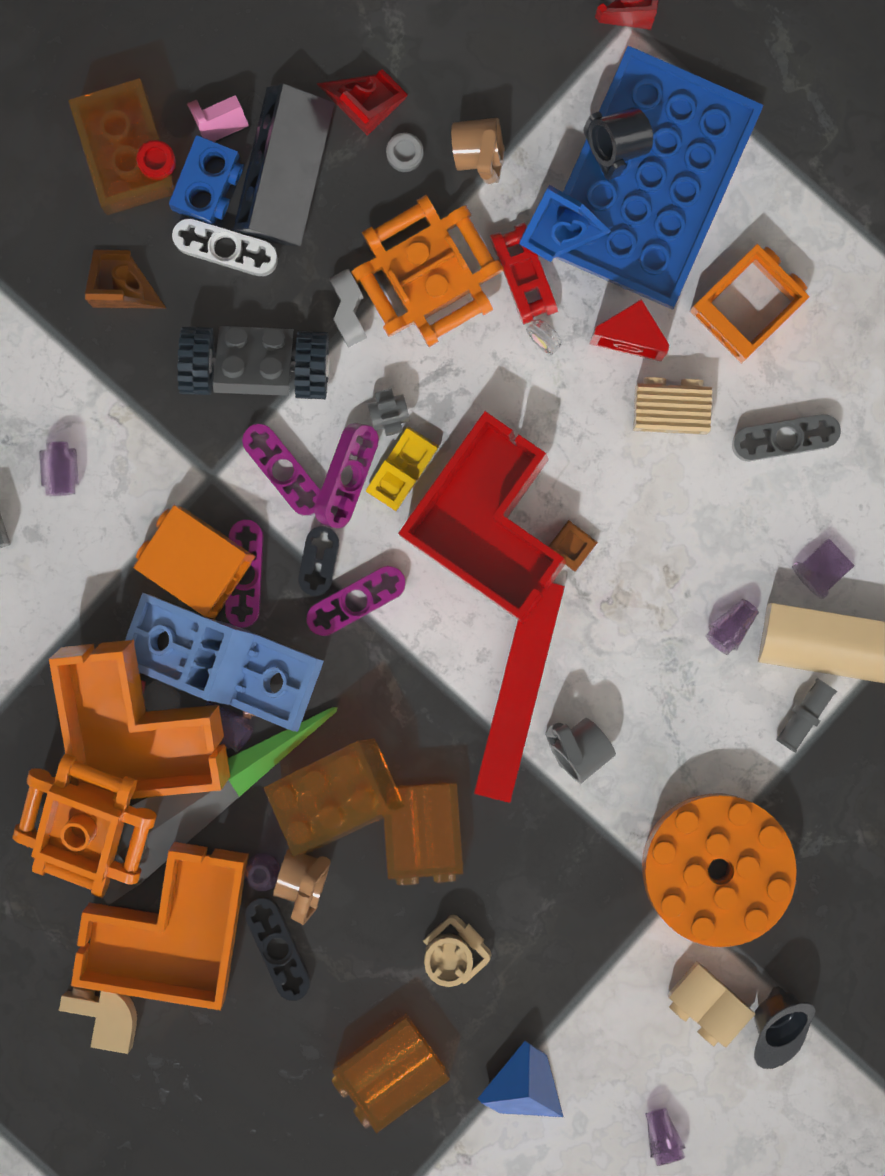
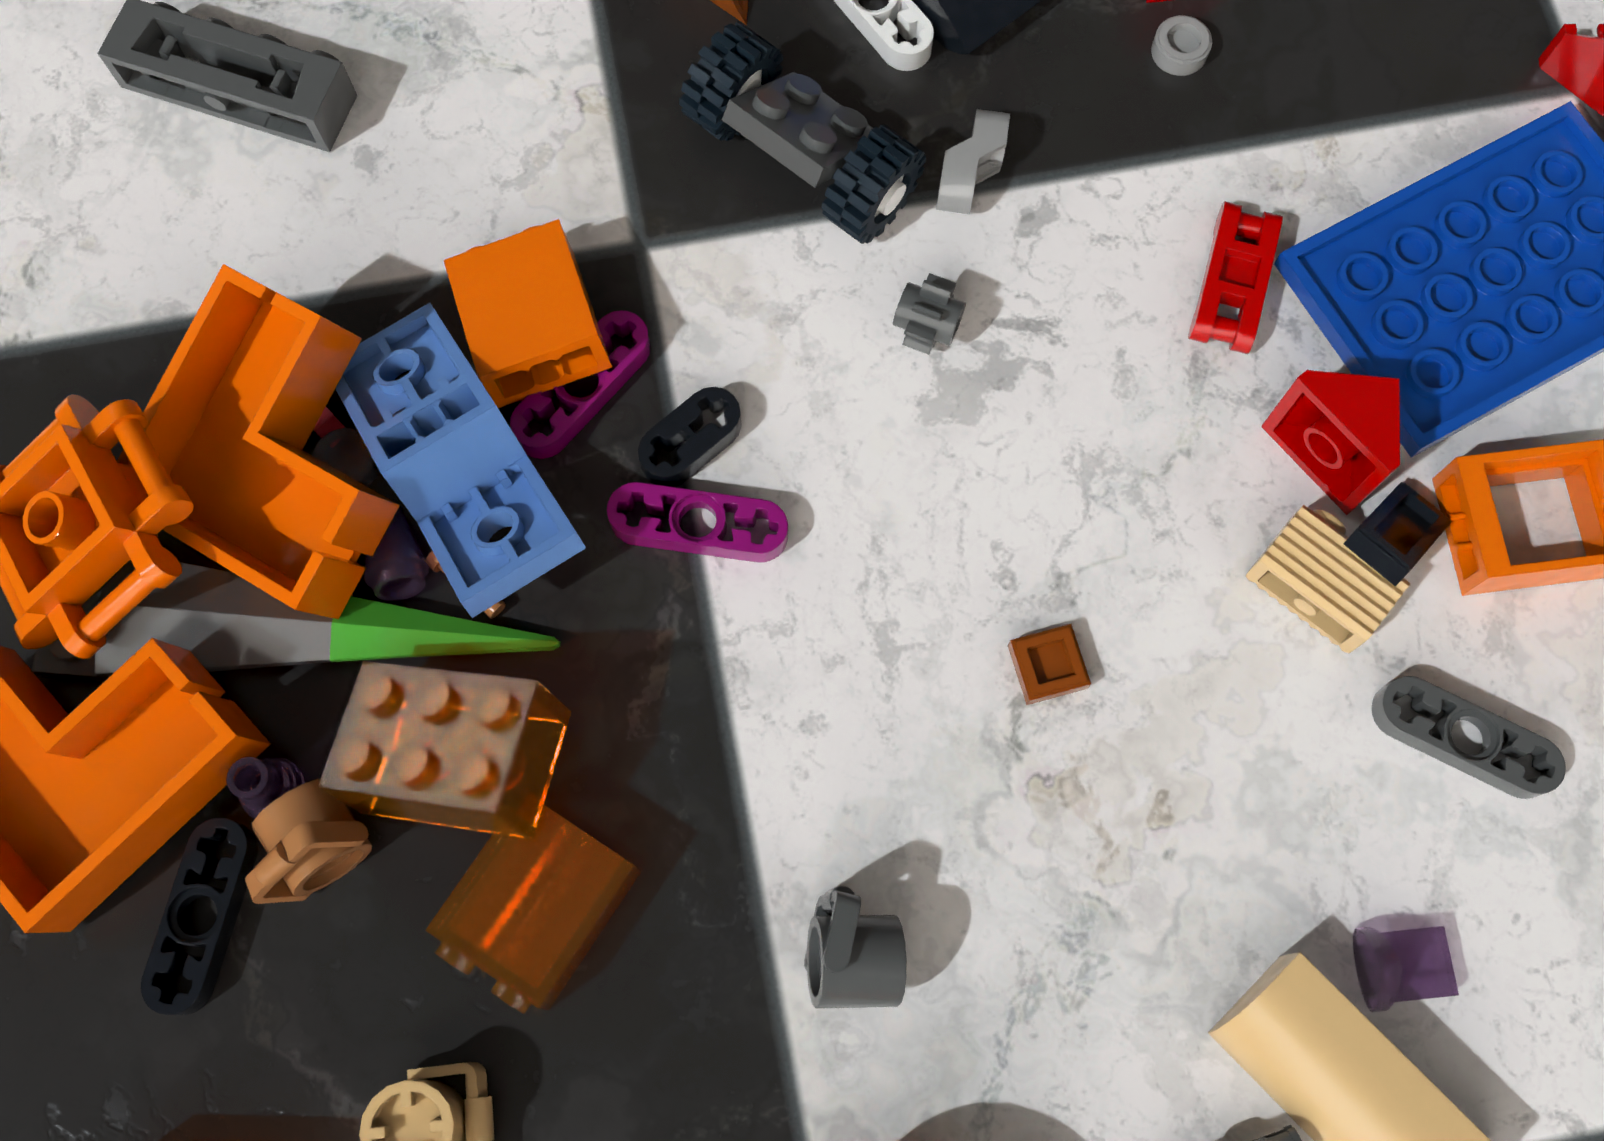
camera: 35 degrees right, 15 degrees down
(58, 469) = (459, 97): clear purple brick -> none
(274, 442) = (722, 274): magenta beam -> none
(360, 467) = (842, 317): magenta beam -> none
(402, 468) = (893, 402): yellow slope -> none
(427, 271) = (1111, 184): orange brick -> none
(467, 525) = (934, 515): red piece -> none
(479, 147) = (1287, 86): medium nougat piece -> none
(518, 697) = (824, 809): red tile -> none
(544, 336) = (1209, 366): clear tile -> none
(560, 225) = (1340, 232): blue slope -> none
(618, 139) = (1493, 177): black piece -> none
(690, 362) = (1398, 533): none -> black tile
(731, 628) = (1206, 948): clear purple cone -> none

